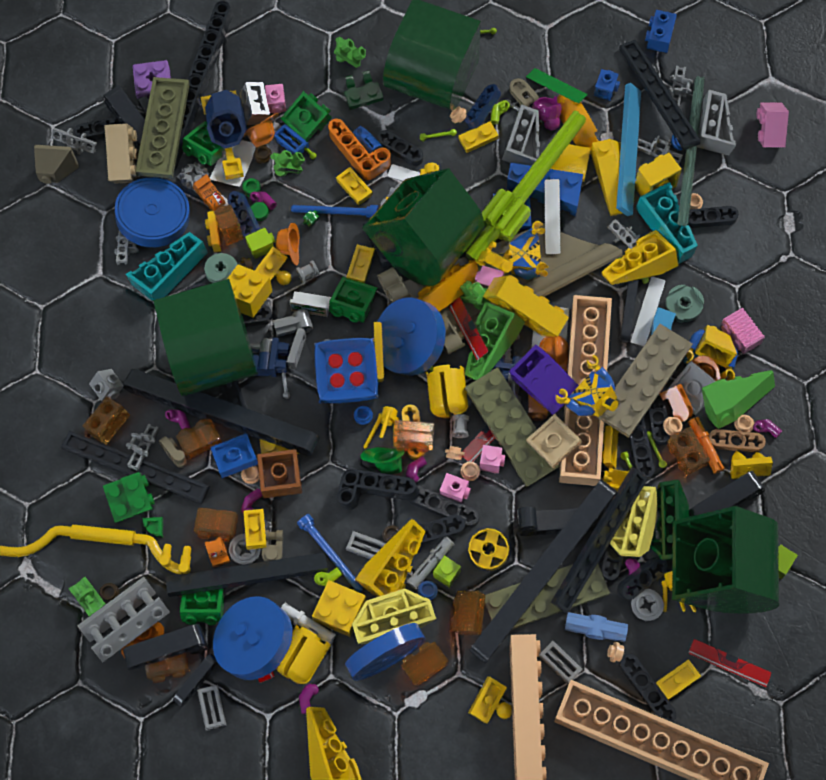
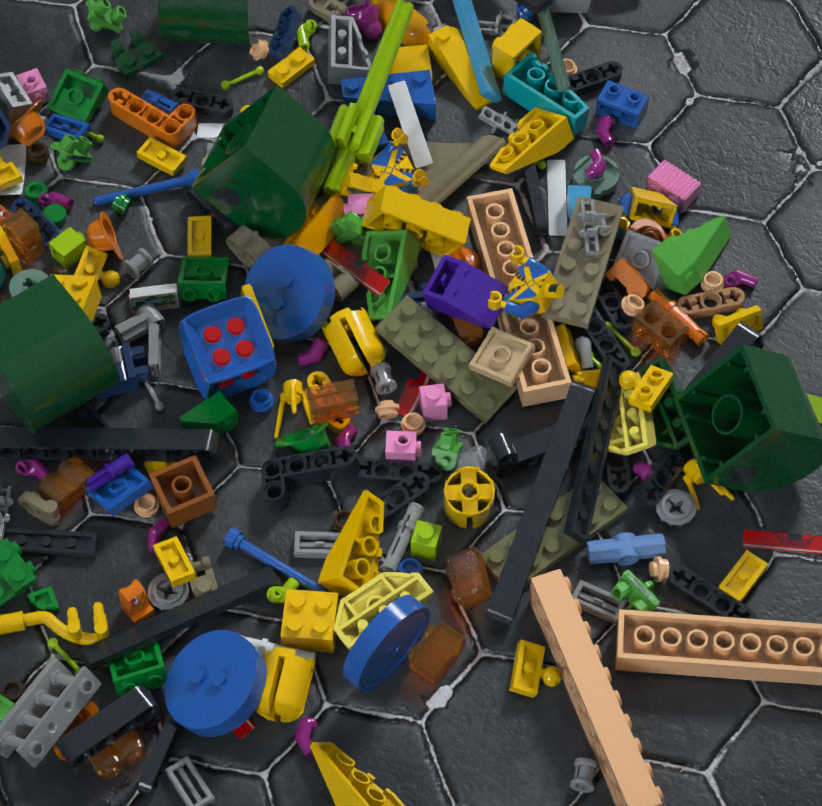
camera: 20 degrees left, 10 degrees down
(150, 562) = (54, 644): none -> lime hinge
(216, 524) = (120, 570): clear orange brick -> none
(231, 441) = (110, 472): none -> dark purple axle
(320, 417) = (212, 414): none -> green slope
(417, 388) = (315, 353): none -> magenta arm
(488, 501) = (447, 449): none -> bright green hips
(506, 516) = (475, 457): none -> clear tile
(592, 667) = (635, 592): none -> bright green hips
(622, 449) = (583, 347): none -> light grey arm
(657, 505) = (648, 389): none -> yellow plate
(662, 345) = (592, 232): none -> light grey piece
(688, 297) = (598, 165): none -> magenta arm
(705, 262) = (603, 128): none -> magenta arm
(727, 246) = (622, 103): none -> blue brick

